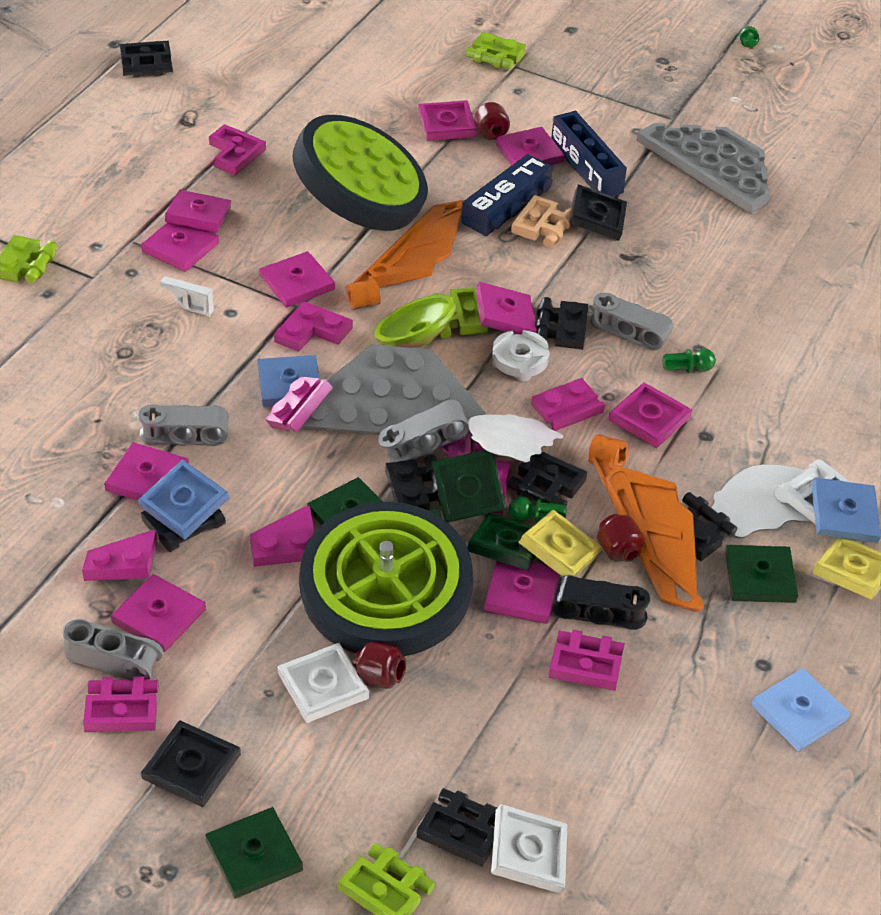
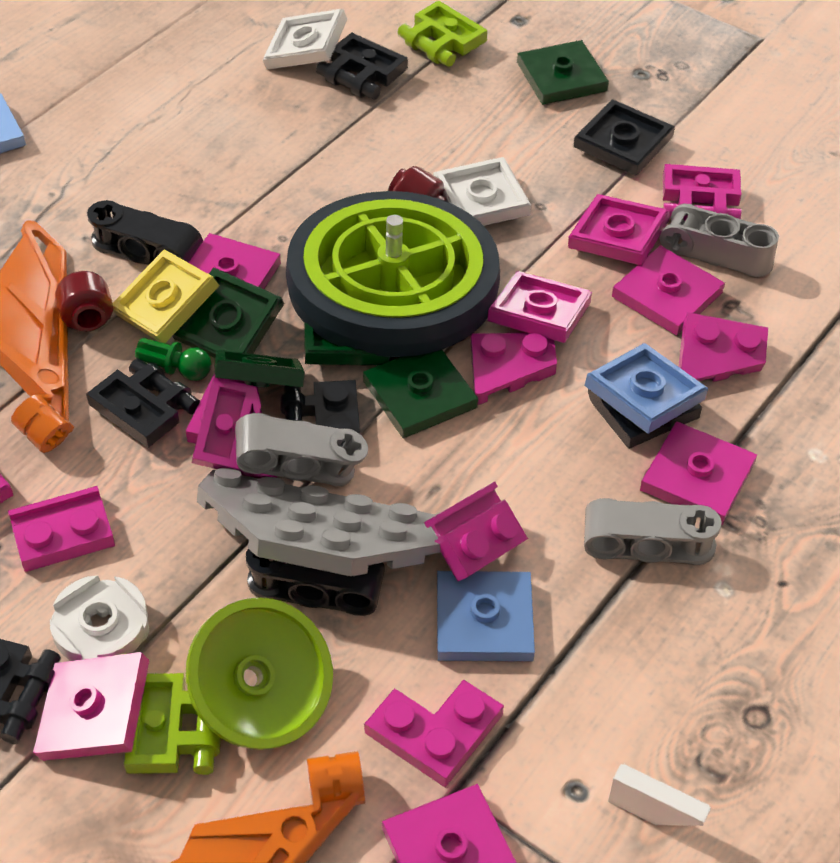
camera: 170 degrees left, 5 degrees up
(199, 657) = (618, 229): none -> dark pink plate
(264, 577) = (540, 306): none -> dark pink plate
(511, 435) = (177, 431): white sticker -> none
(583, 665) = (185, 179): dark pink plate -> none

